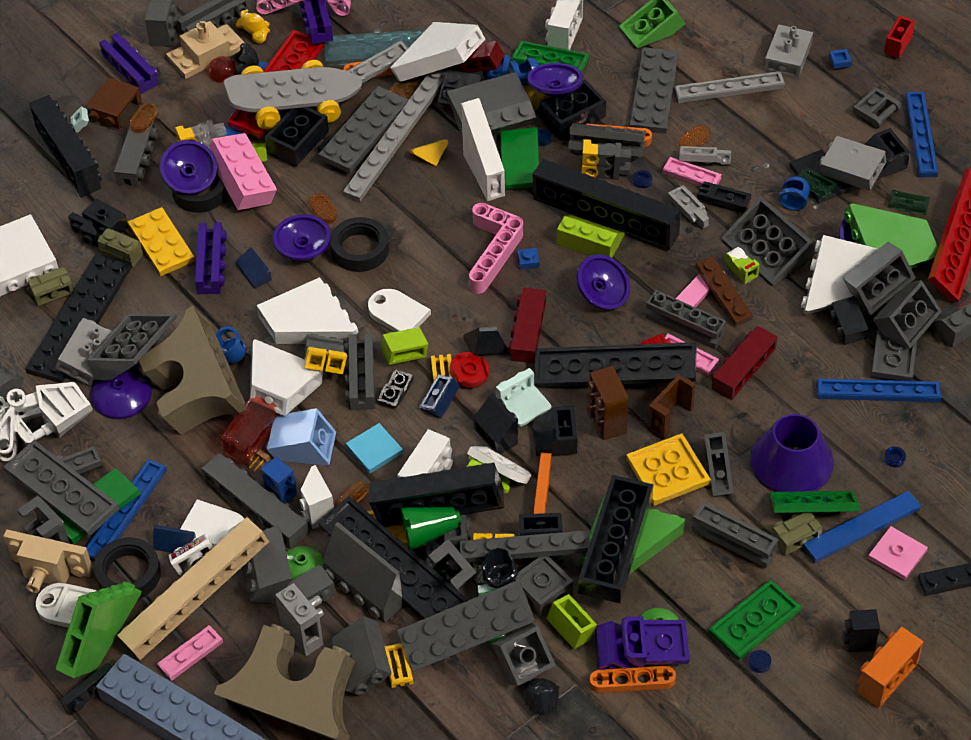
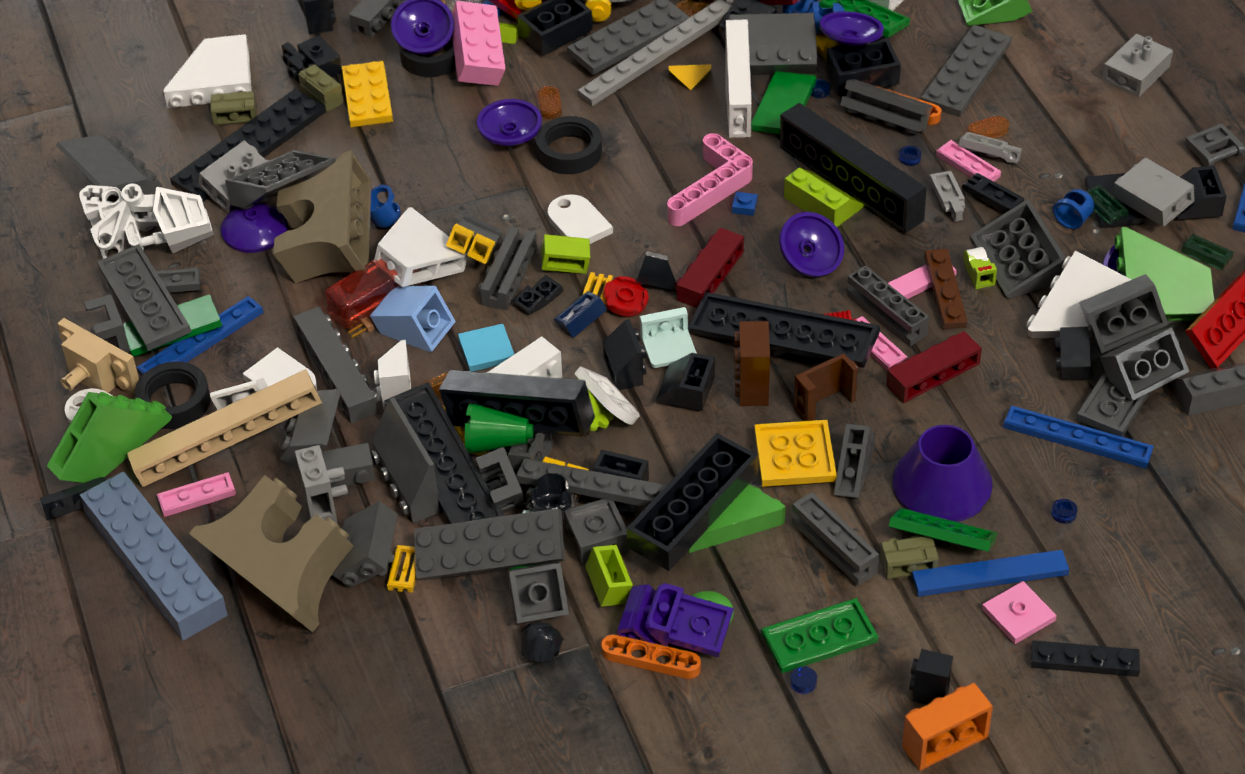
camera: 20 degrees right, 5 degrees down
(170, 539) = (229, 375): dark blue slope -> none
(210, 259) = (406, 121): dark purple brick -> none
(254, 268) = (448, 142): dark blue slope -> none
(279, 479) = (365, 347): blue brick -> none
(305, 312) = (478, 193): white slope -> none
(311, 557) = (353, 434): bright green dish -> none
(543, 483) = (649, 428): orange beam -> none
(605, 160) = (872, 124): dark grey hips -> none
(729, 87) = (1054, 86): light grey tile -> none
(840, 58) = (1194, 86): blue plate -> none

